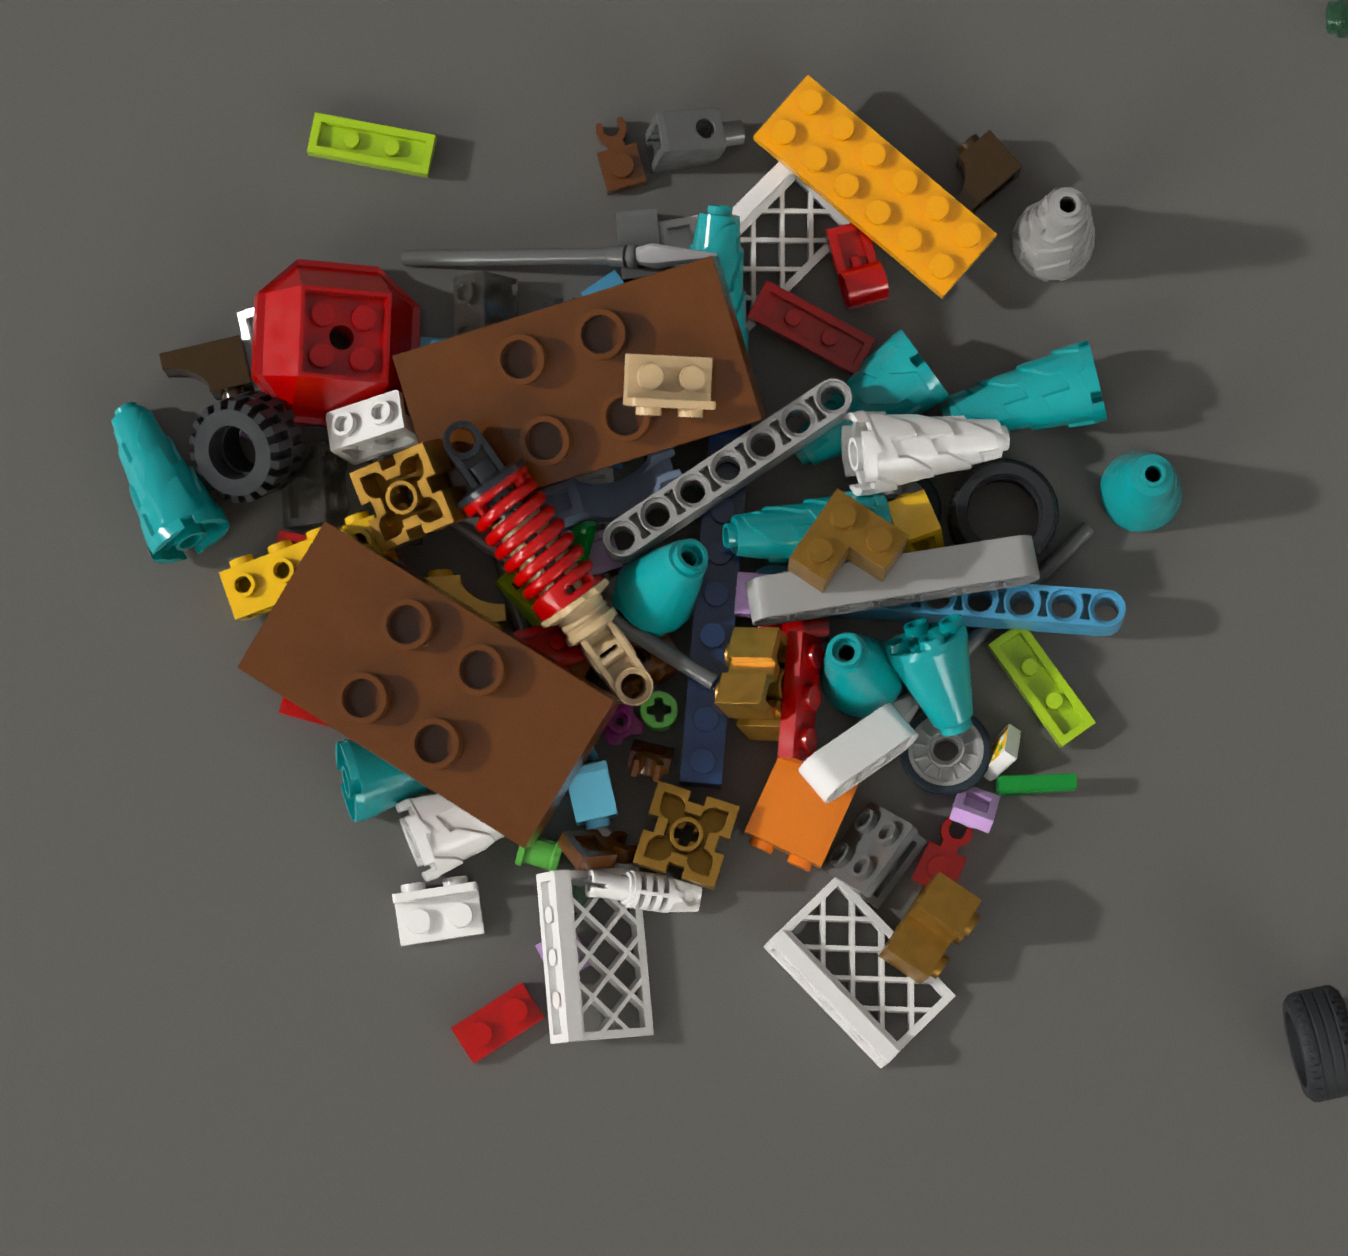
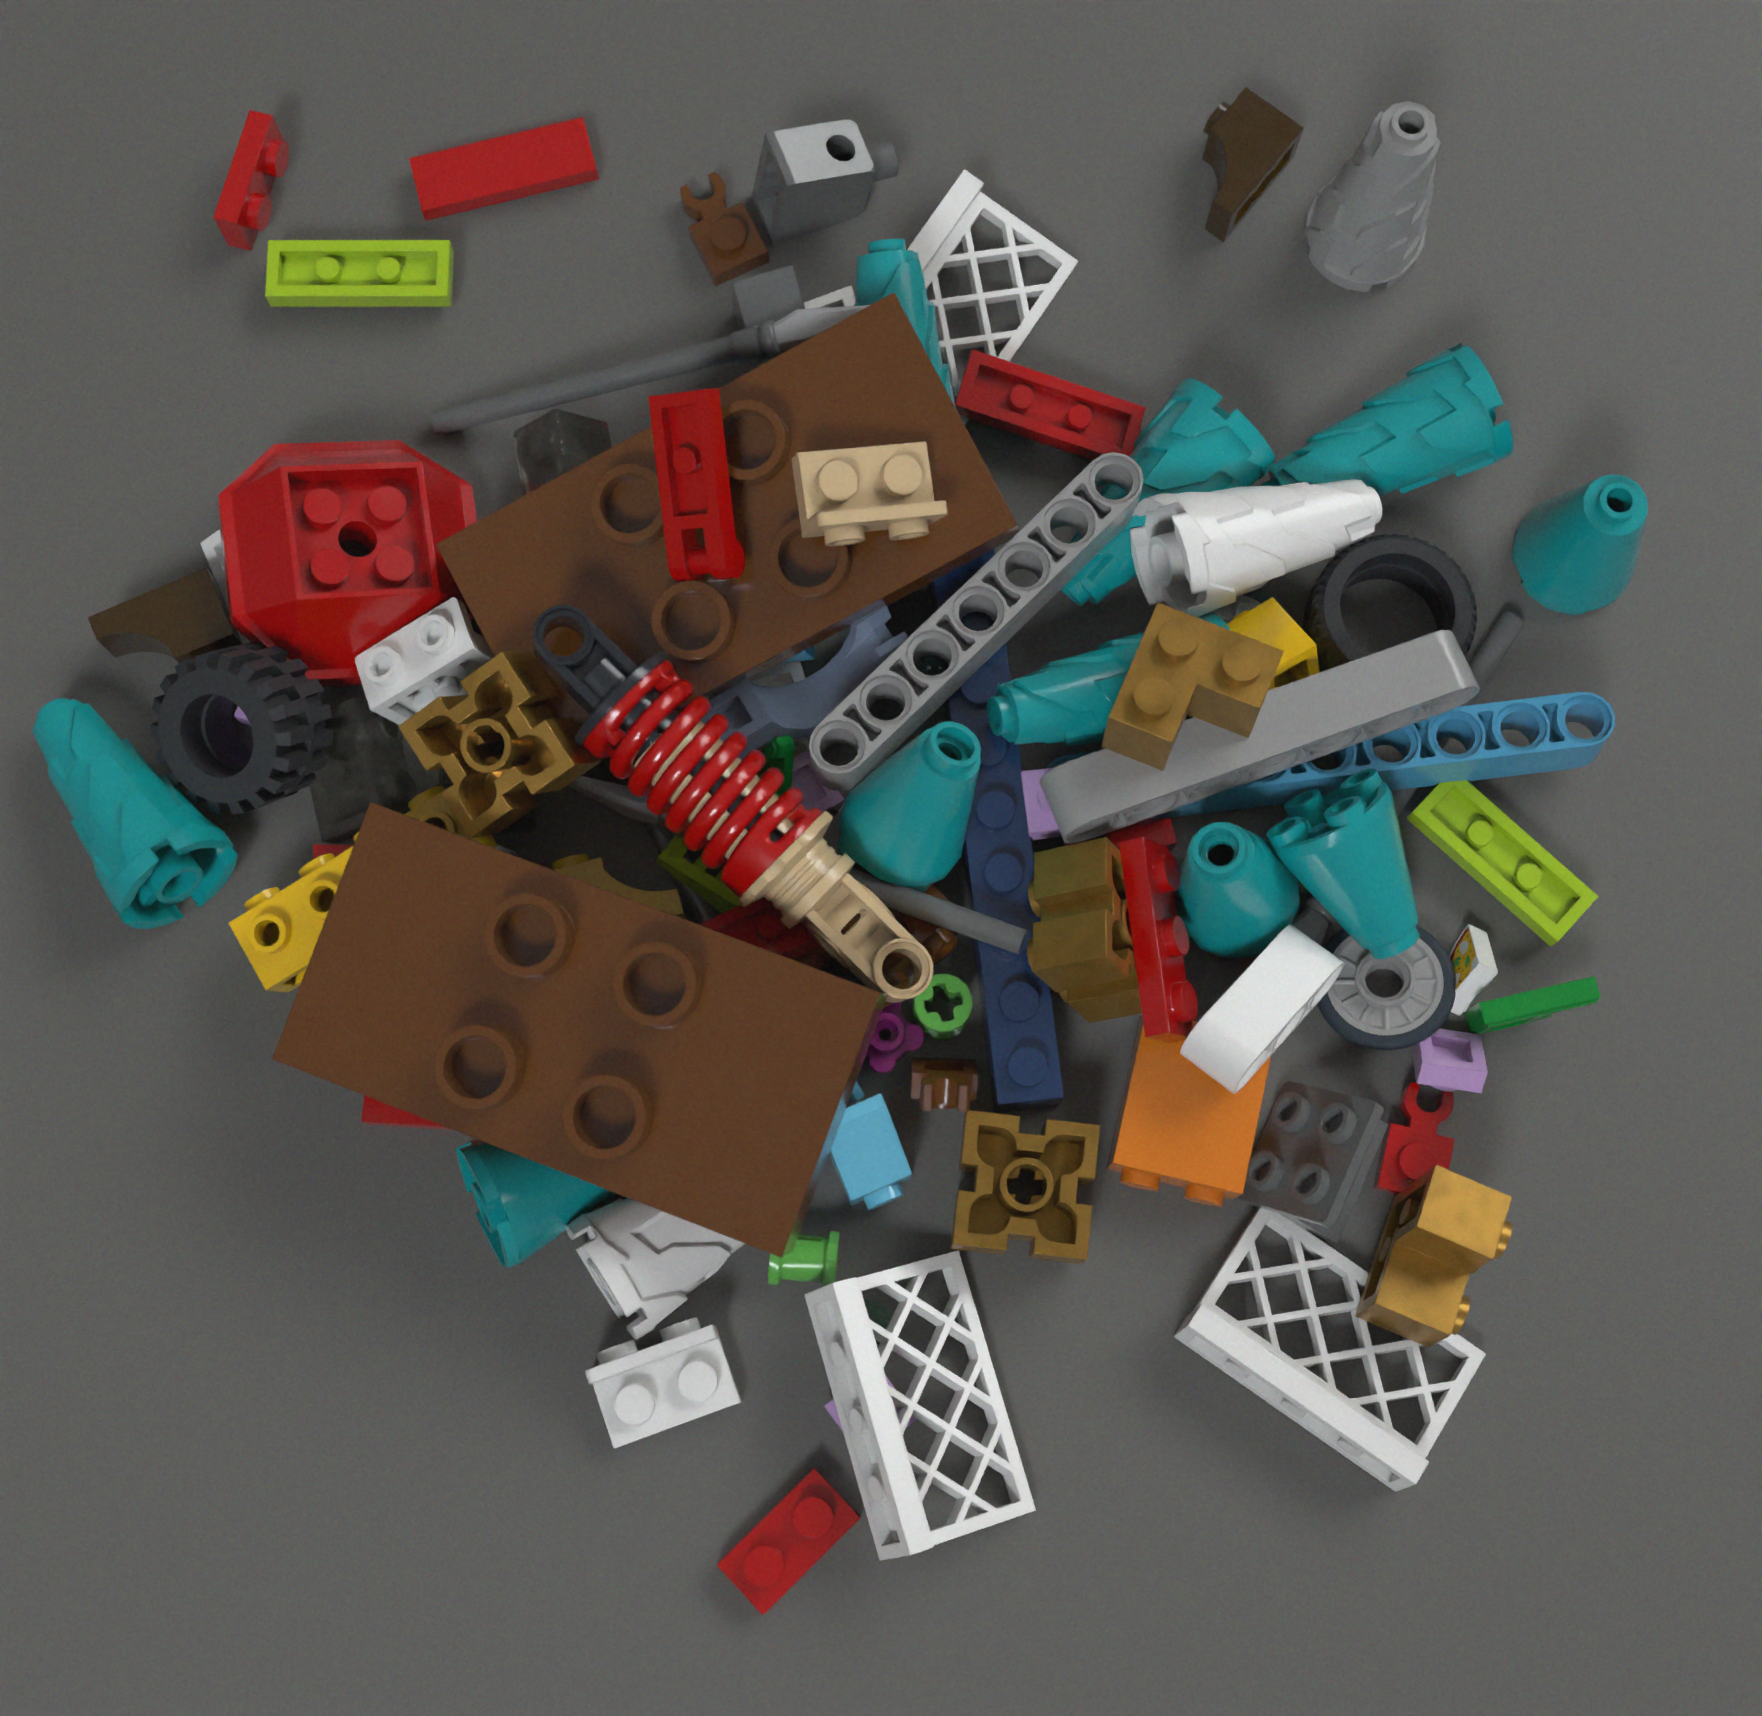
camera: 15 degrees left, 5 degrees down
(304, 80) = (245, 197): none -> red plate
(480, 86) = (503, 168): none -> red tile
(562, 358) = (694, 485): none -> red plate
(592, 850) = (886, 1240): reddish brown plate -> none
(645, 891) = (978, 1286): white hinge -> none
(856, 266) = (1100, 320): red plate -> none
(875, 186) = (1102, 189): light orange plate -> none

